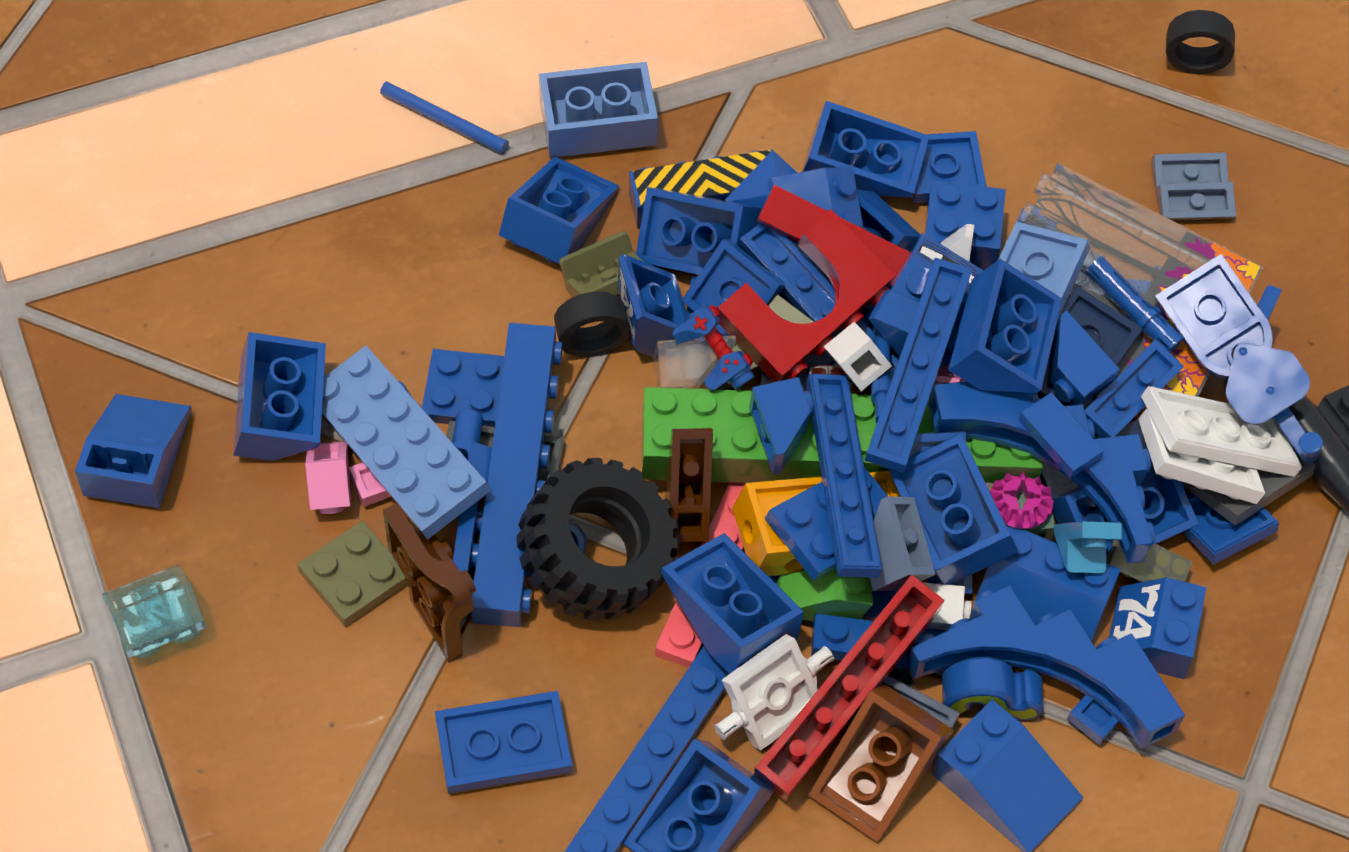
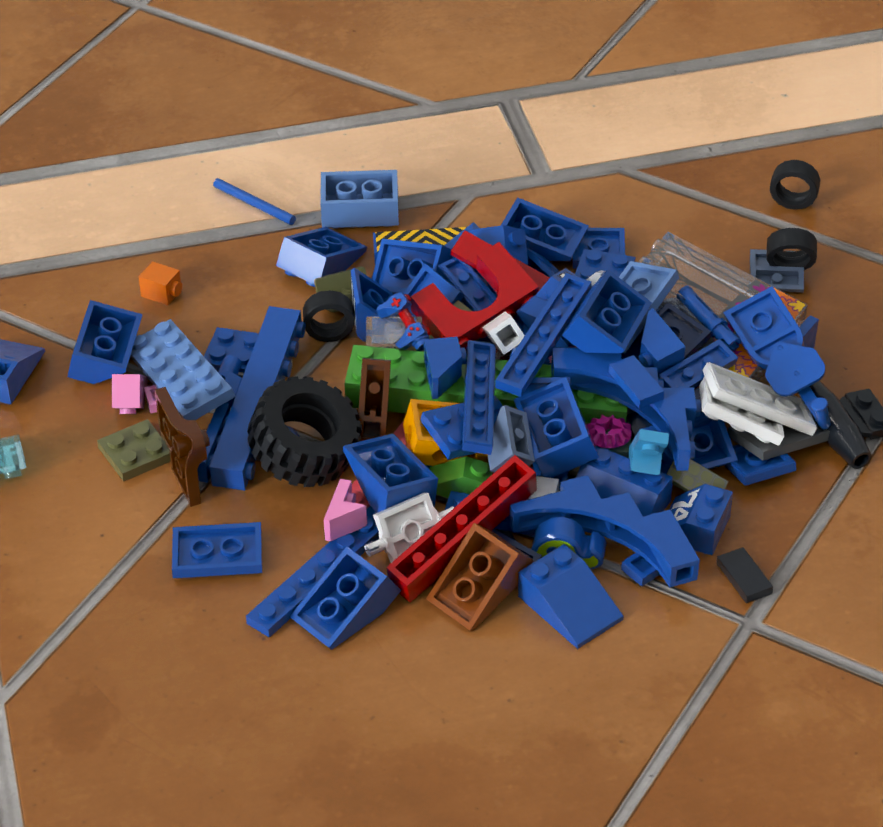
camera: 10 degrees right, 15 degrees down
(338, 278) = (160, 283): none -> orange brick
(675, 675) = (344, 513): none -> bright pink slope
(1217, 160) = (791, 239): none -> black tyre
(1235, 712) = (744, 575): none -> black tile

